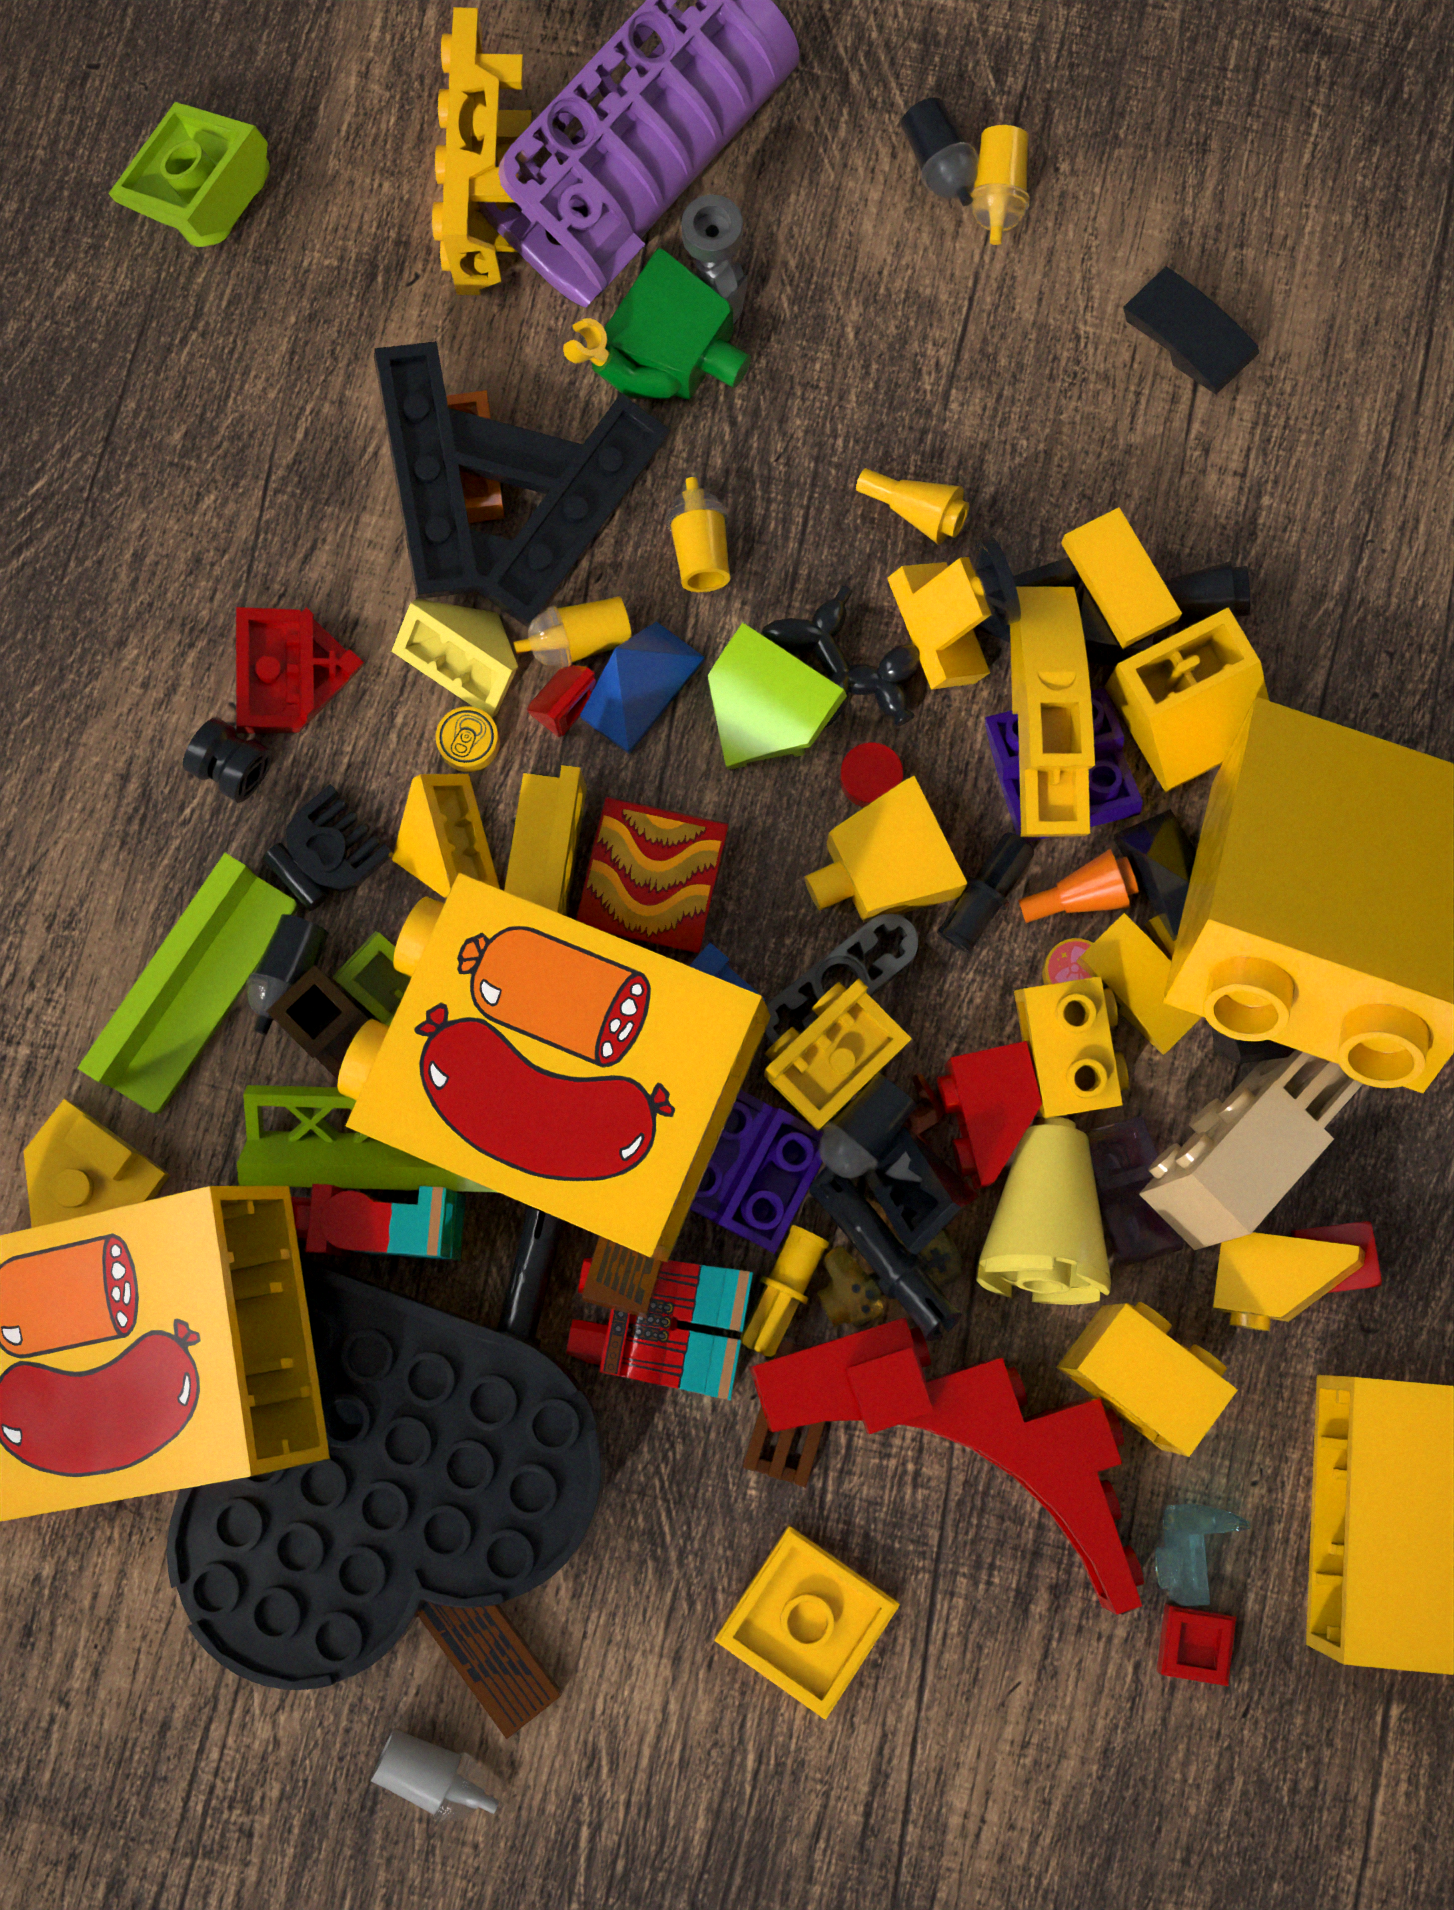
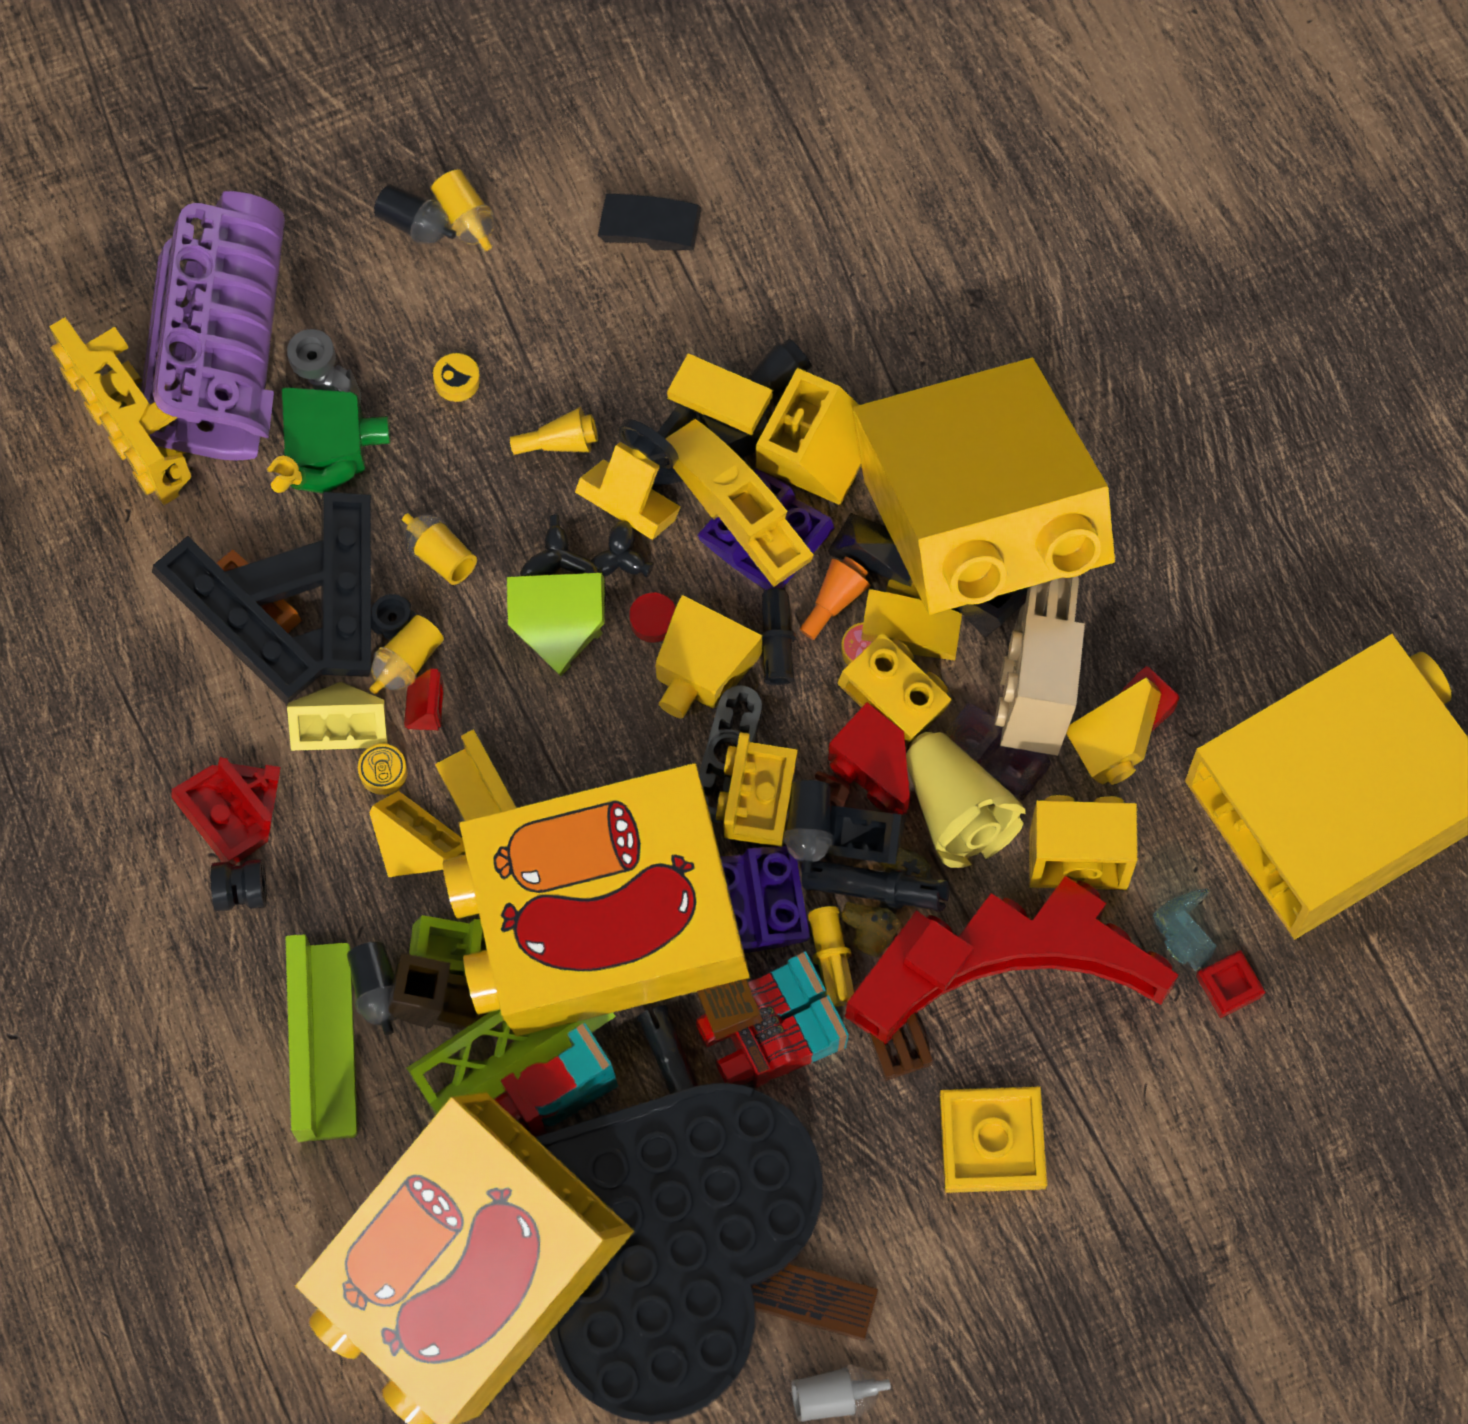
camera: 35 degrees left, 10 degrees down
(84, 1169) = (331, 1193): yellow plate -> none
(319, 853) = (340, 904): black piece -> none
(593, 565) = (386, 606): none -> black plate
(639, 685) = (468, 663): blue slope -> none
(652, 874) = (560, 757): slope -> none
(858, 363) = (456, 377): none -> yellow tile

